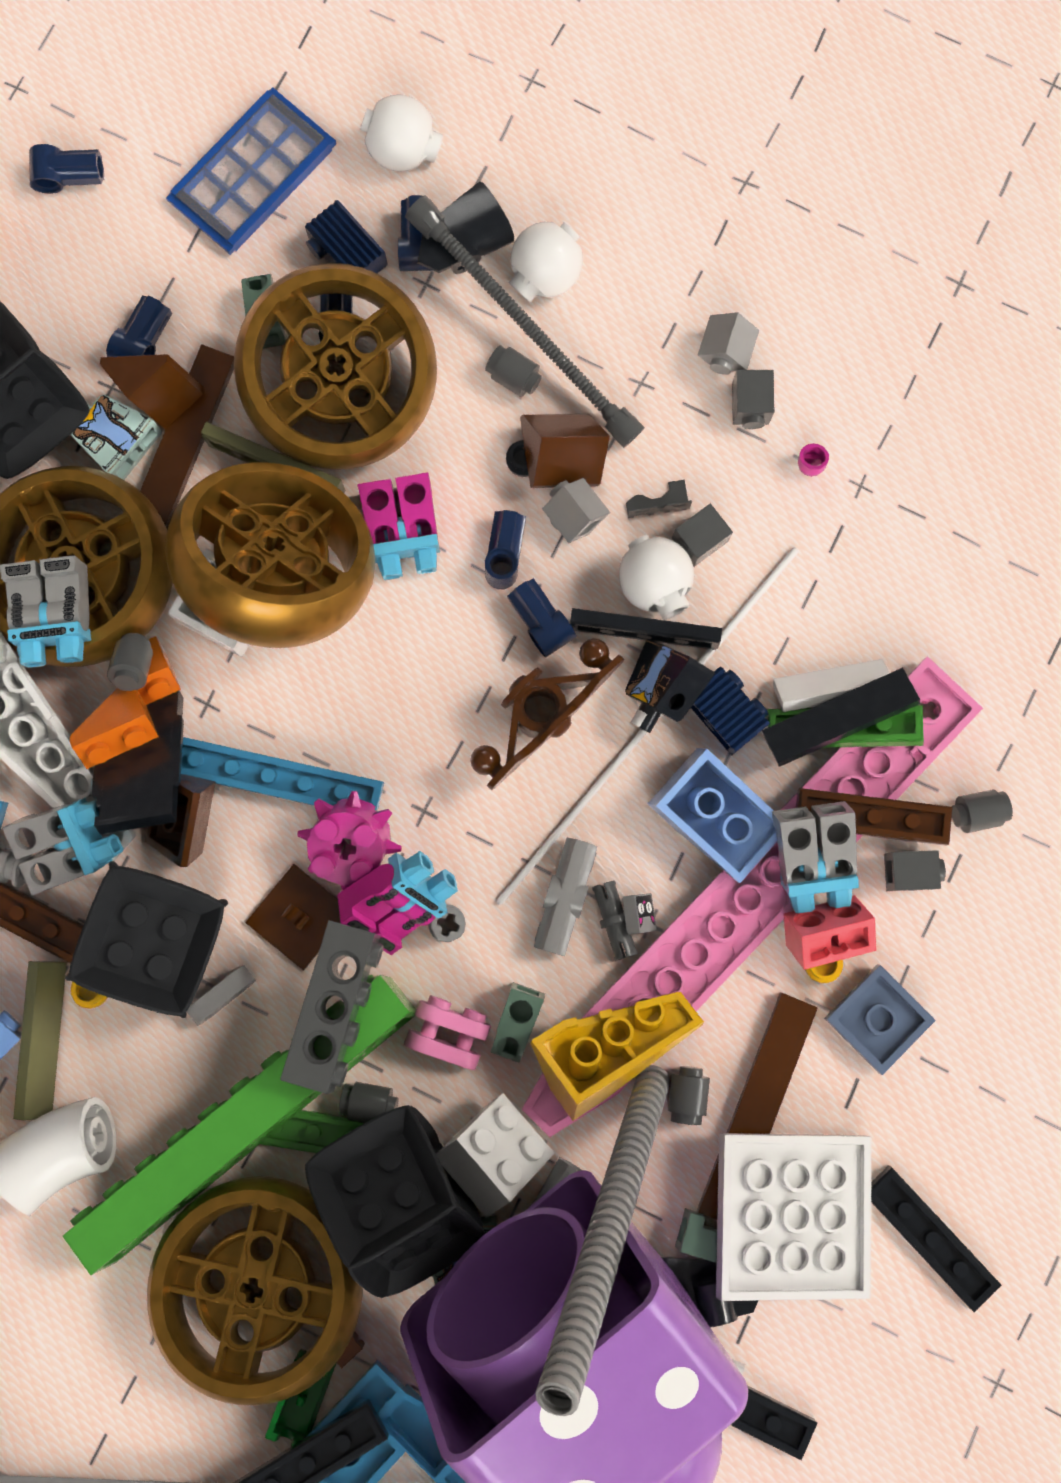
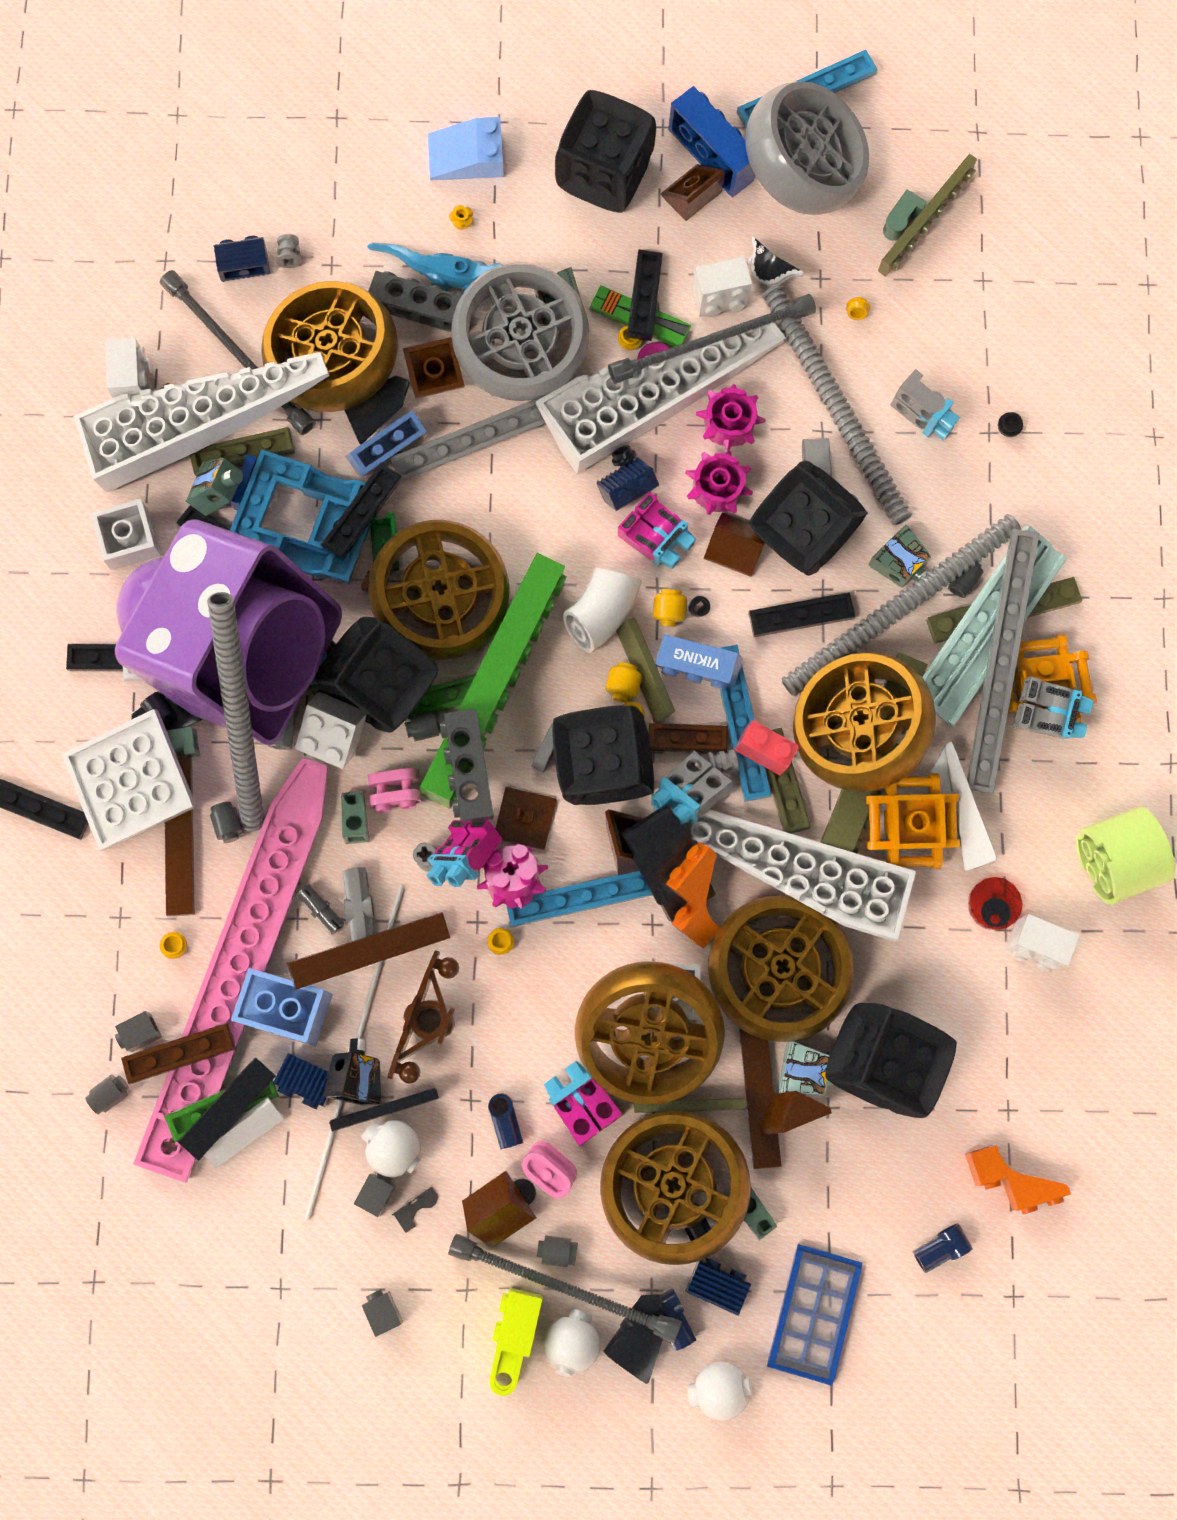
camera: 150 degrees right, 5 degrees down
(47, 608) = (771, 927): hips -> none
(76, 1036) = (623, 682): none -> yellow head
(130, 662) = (704, 920): dark grey brick -> none
(141, 330) = (825, 1147): dark blue piece -> none
(405, 771) = (500, 941): none -> yellow plate
(477, 463) = (549, 1169): none -> bright pink brick
(545, 625) = (453, 1082): dark blue piece -> none
(575, 509) = (469, 1170): light grey brick -> none
(578, 832) = (368, 950): none -> reddish brown tile
(603, 1052) = (292, 819): yellow wedge -> none
(607, 295) = (514, 1336): none -> neon yellow brick
(639, 913) = (306, 920): light grey tile -> none
(728, 342) = (416, 1344): light grey brick -> none
(810, 457) = (322, 1293): dark pink hinge -> none
(817, 854) = (205, 997): light grey hips -> none
(830, 933) = (177, 964): coral brick -> none
(880, 1019) = (122, 926): sand blue plate -> none

